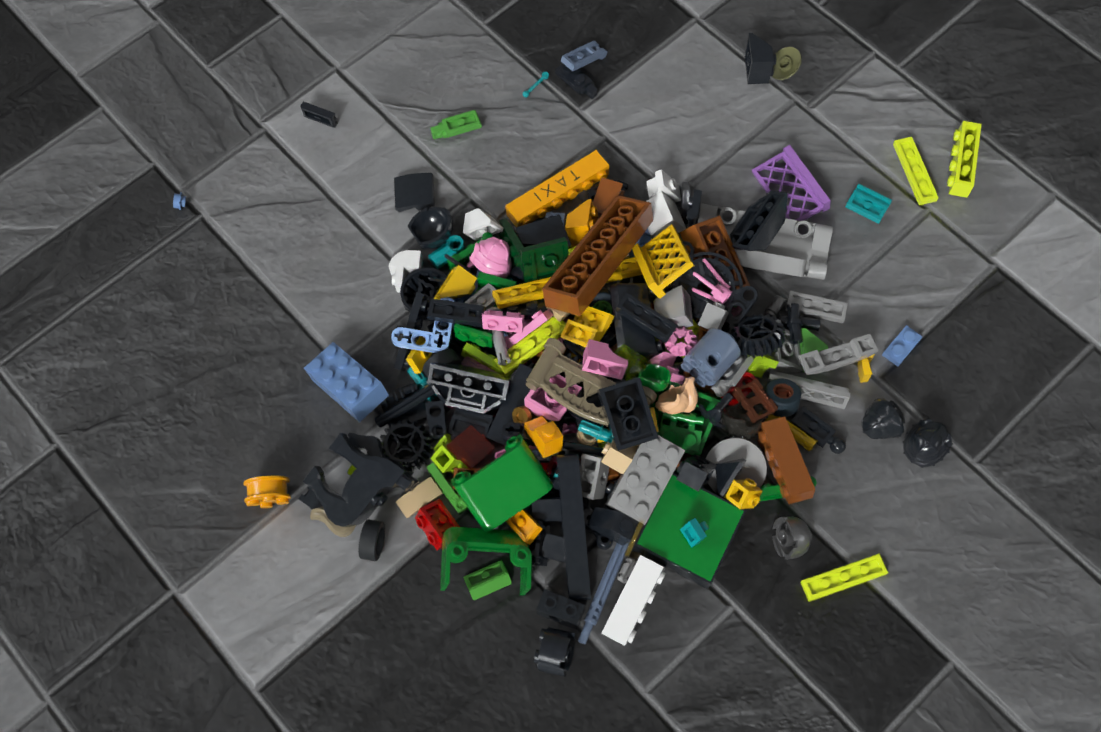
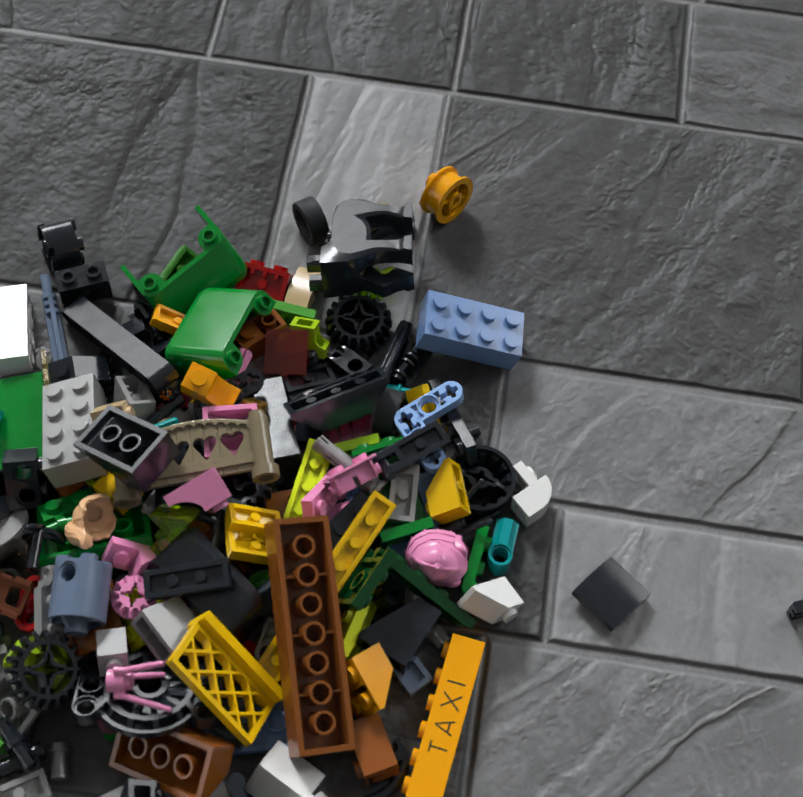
camera: 135 degrees right, 5 degrees down
(431, 227) = (543, 554): black cylinder -> none
(456, 125) = (646, 721): bright green hinge -> none
(655, 377) = (130, 522): green hair -> none

